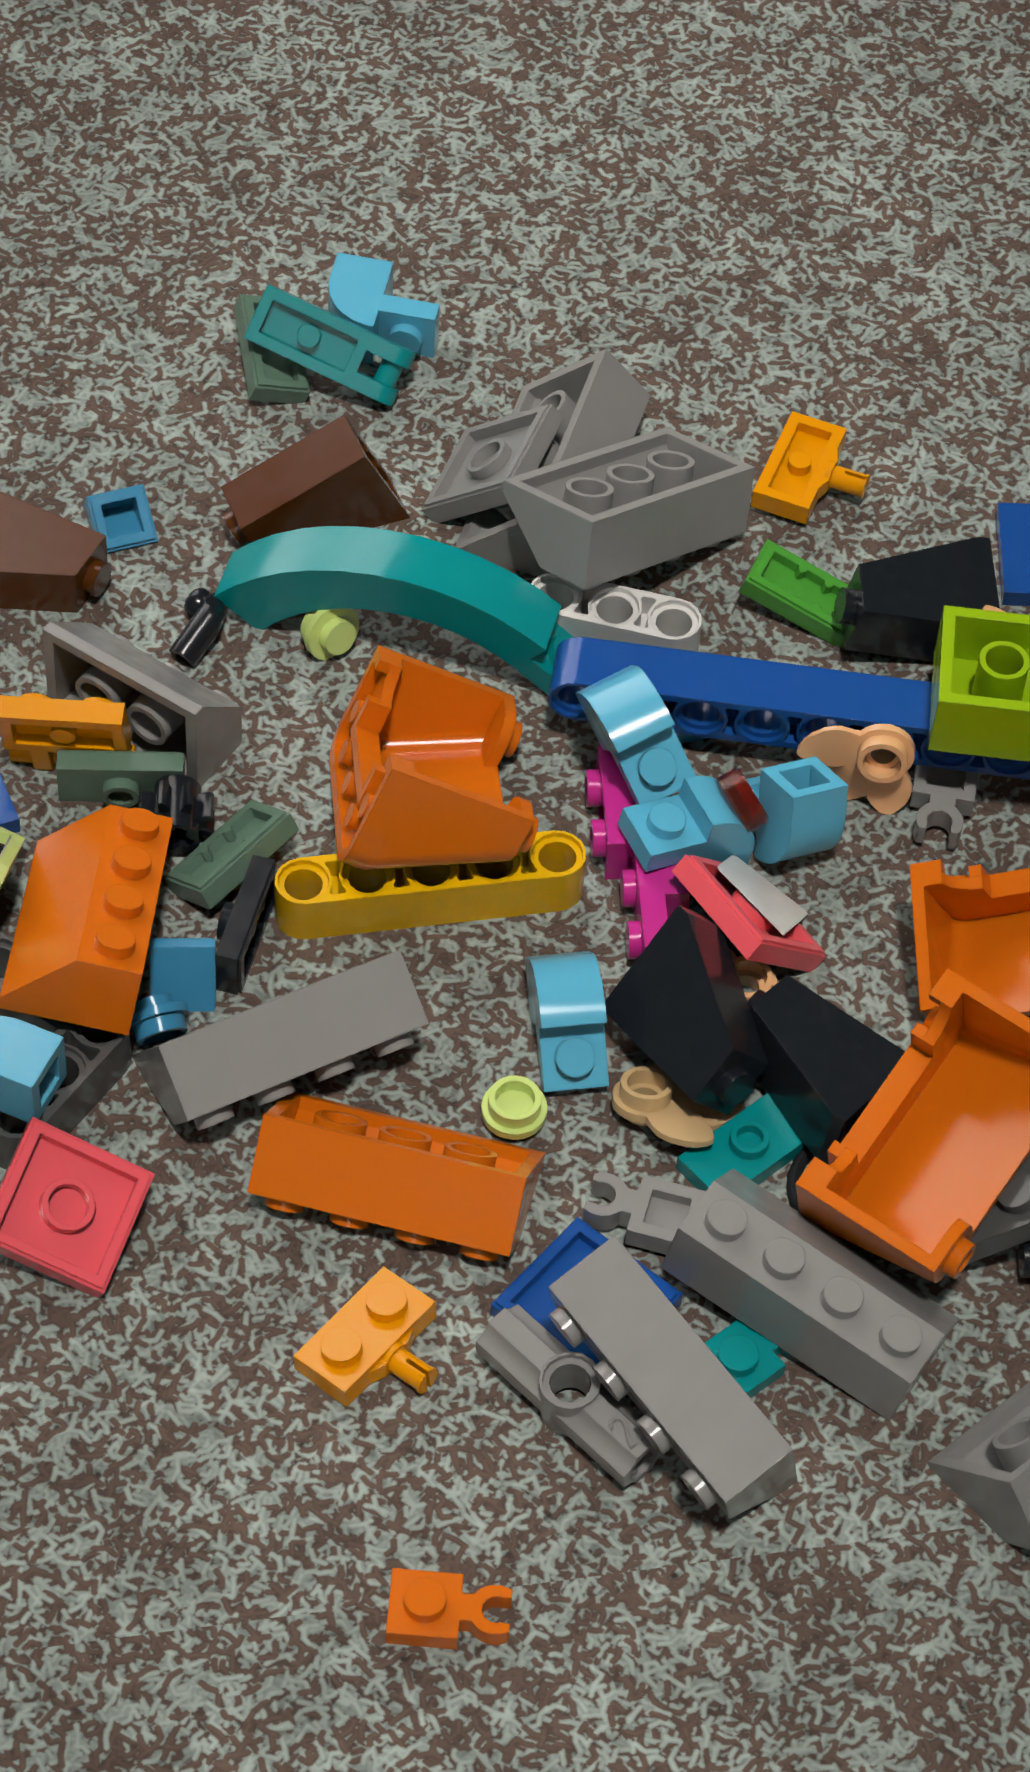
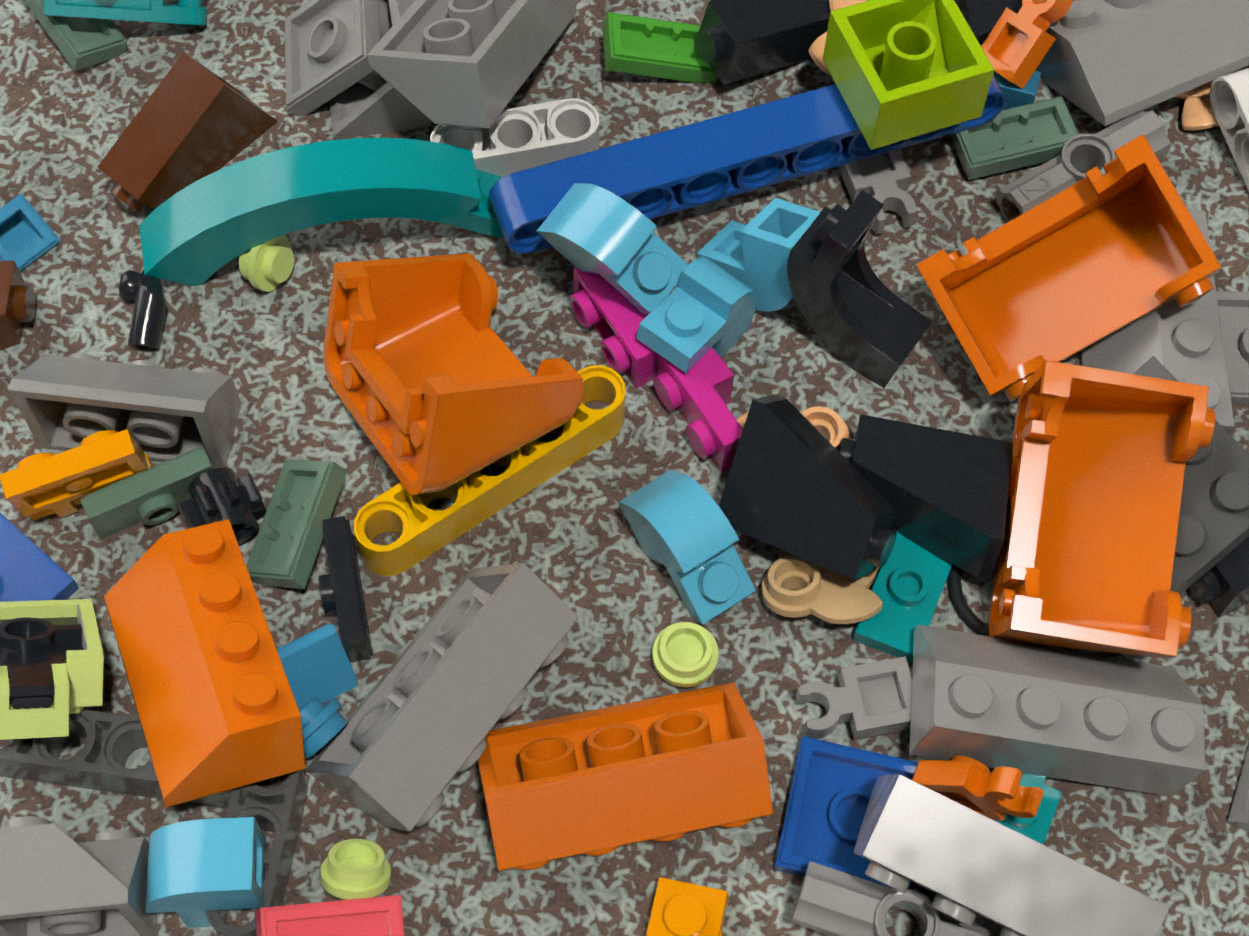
camera: 25 degrees left, 10 degrees up
(130, 1140) = (355, 870): none -> yellowish green plate
(704, 1310) = (979, 789): none -> orange plate
(742, 920) = (791, 369): coral tile -> none
(743, 799) = (736, 265): clear red tile -> none
(768, 899) = (792, 345): white sticker -> none
(834, 870) = (845, 297): none -> black arch
(863, 765) = (813, 180): light nougat plate -> none

